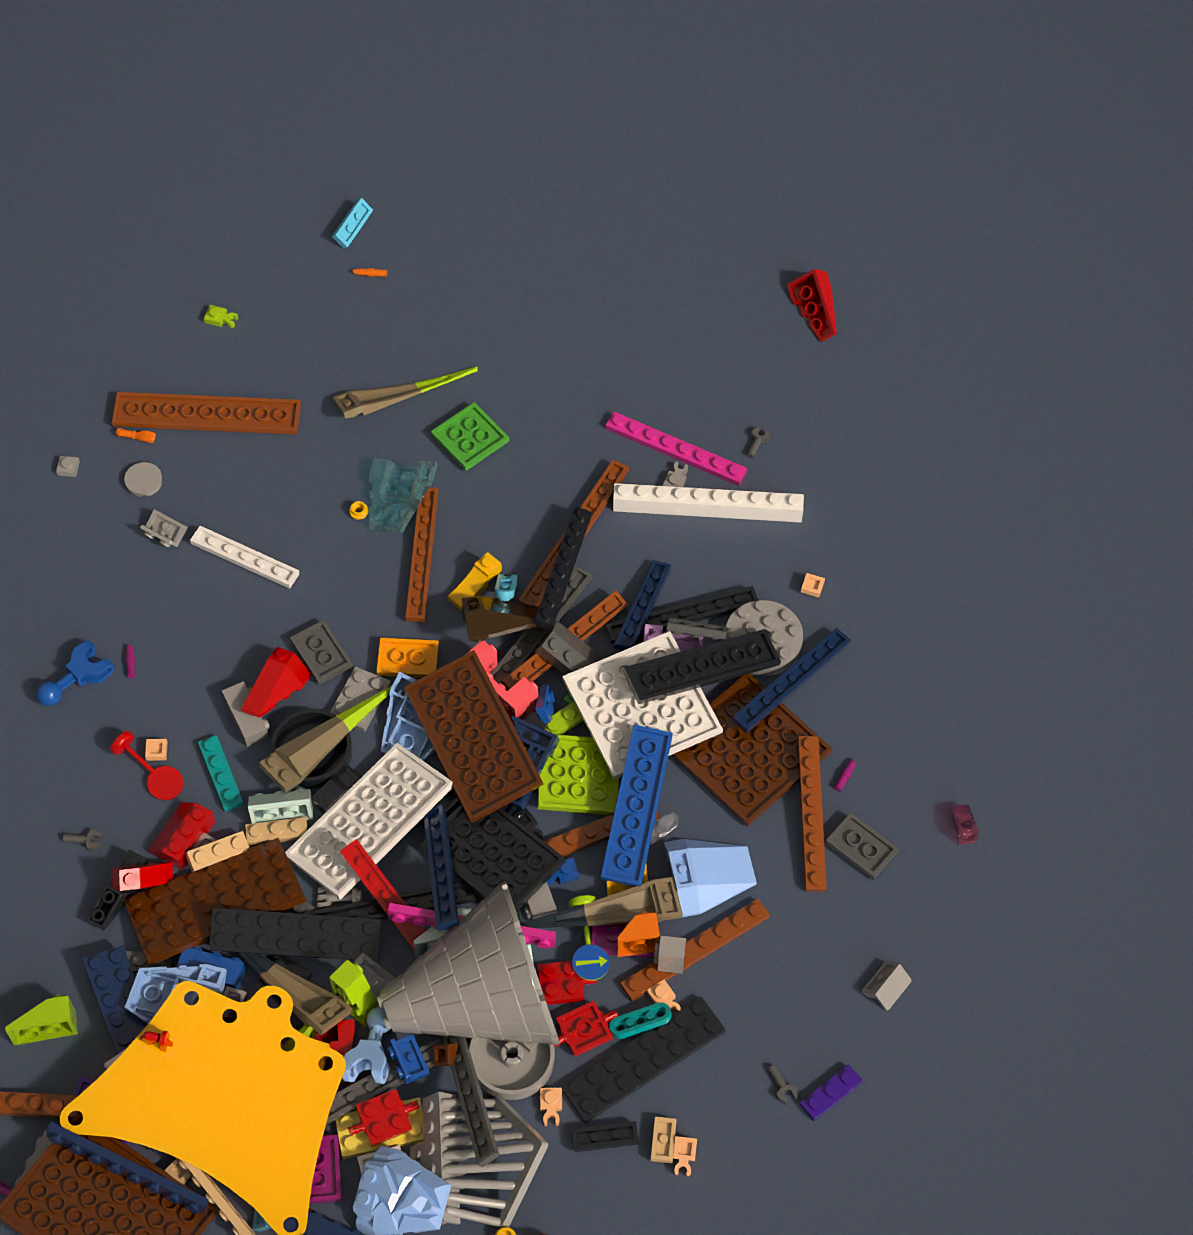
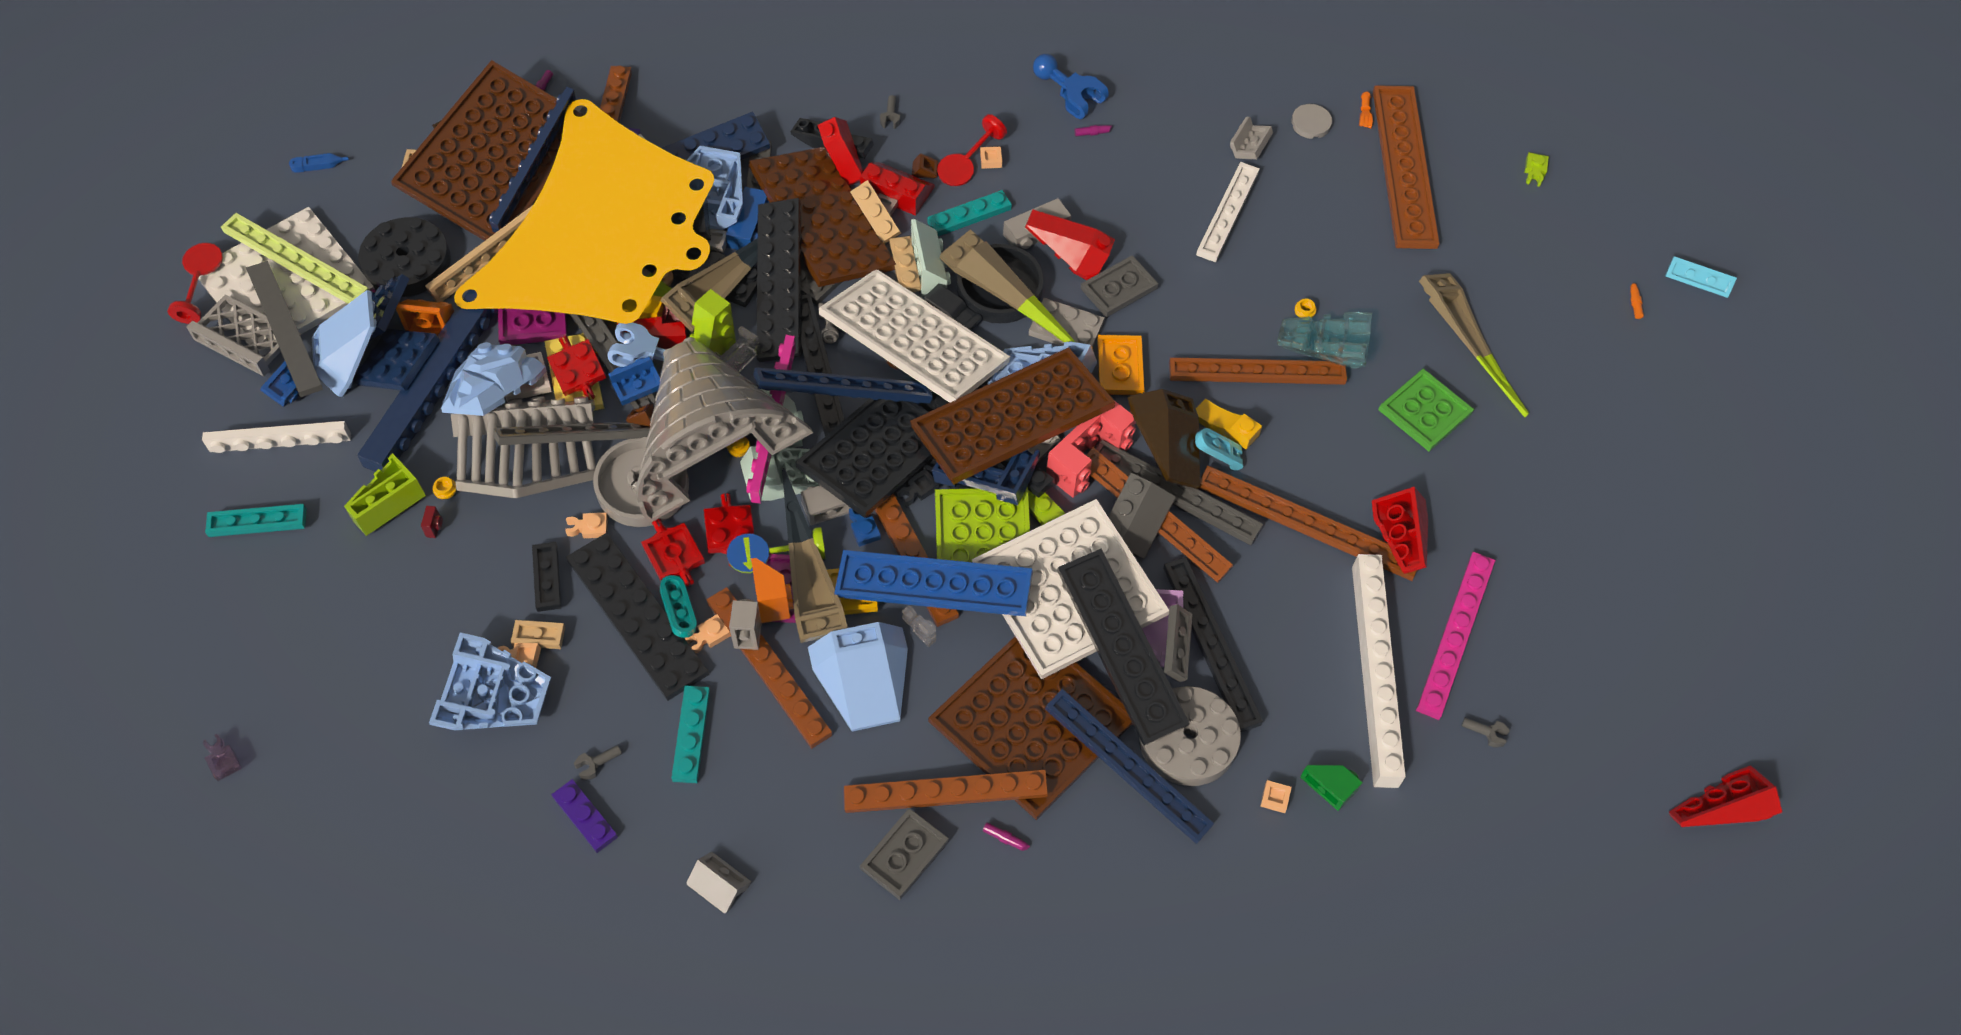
camera: 85 degrees right, 0 degrees up
(46, 1021) = (694, 96): lime slope -> none
(67, 466) = (1316, 60): light grey plate -> none
(150, 1037) = (648, 157): red piece -> none
(158, 811) = (924, 167): none -> reddish brown slope
(378, 886) = (833, 337): red plate -> none
(546, 703) = (1068, 493): blue plate -> none
(563, 568) = (1249, 499): black plate -> none
(583, 467) = (1404, 526): none -> red wedge
(642, 605) = (1217, 595): dark blue tile -> none
(676, 478) = (1408, 634): light grey plate -> none
(721, 1174) = (489, 689): none -> light blue wedge
(757, 1010) = (691, 734): none -> teal plate
(804, 544) = (1332, 782): none -> green slope
(964, 824) = (940, 982): clear pink leg -> none

